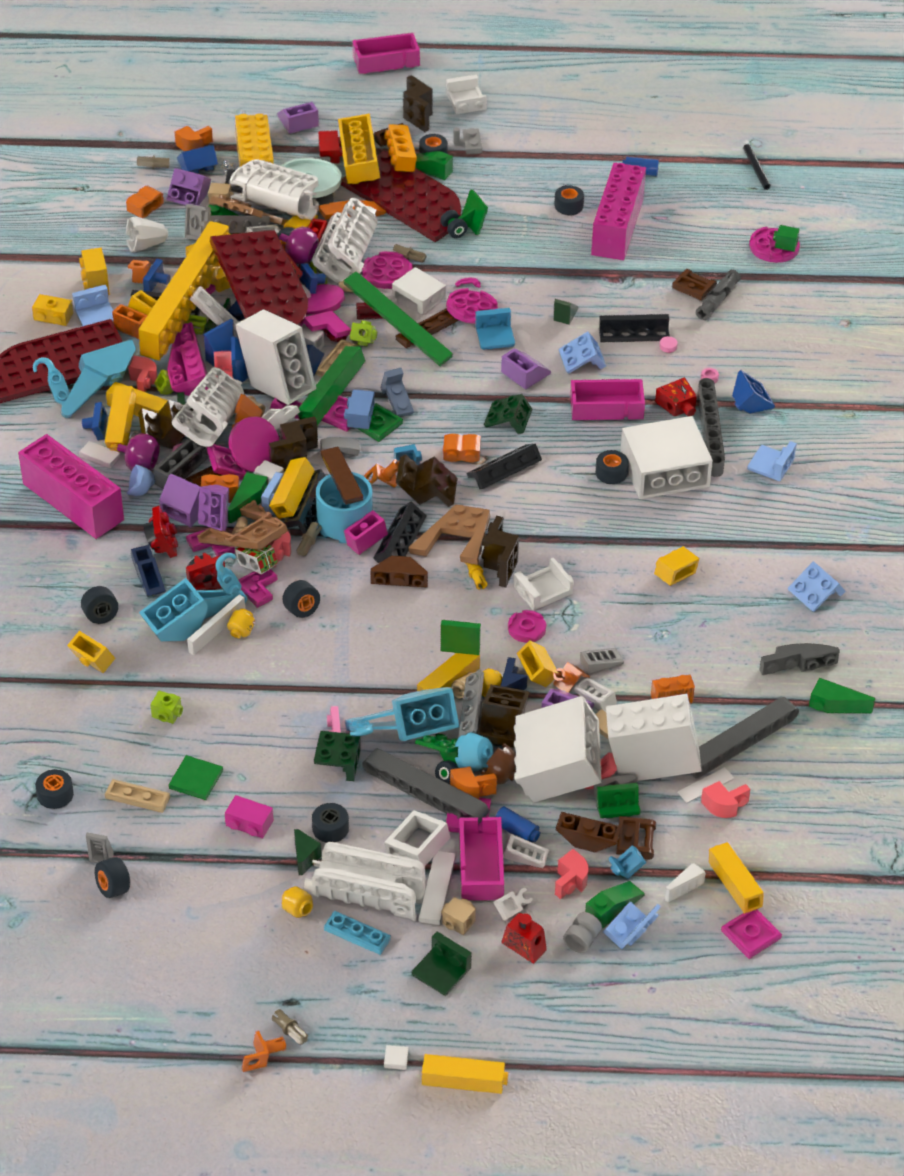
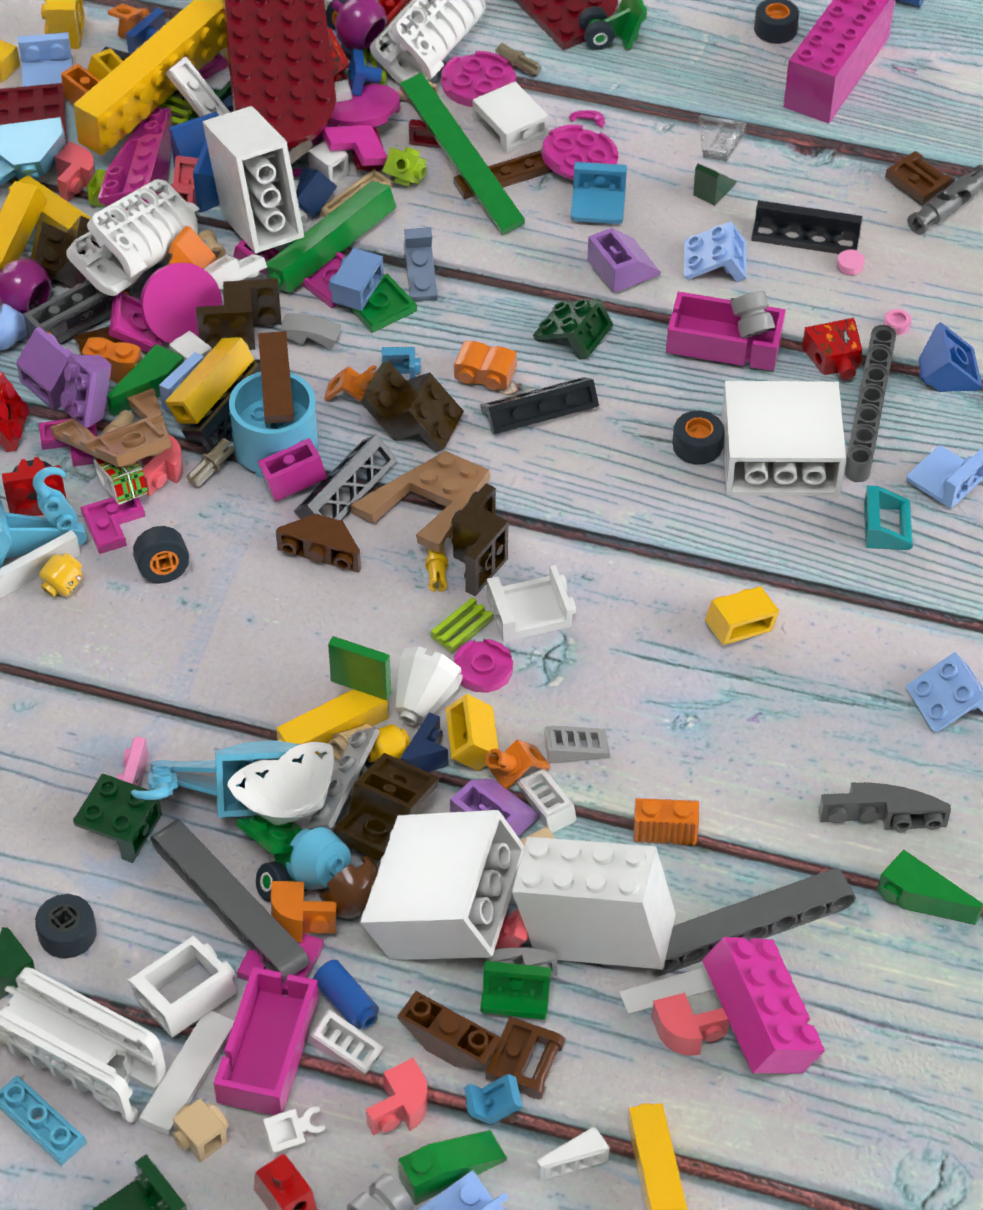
camera: 15 degrees right, 5 degrees up
(443, 713) = (288, 787): none -> white piece
(498, 641) = (424, 683): none -> white cone
(509, 595) = (458, 622): none -> lime tile
(558, 280) = (720, 137): none -> clear wing
(624, 385) = (752, 313): none -> light grey wheel
(740, 504) = (877, 536): none -> teal tile
(767, 778) = (763, 1005): none -> dark pink piece

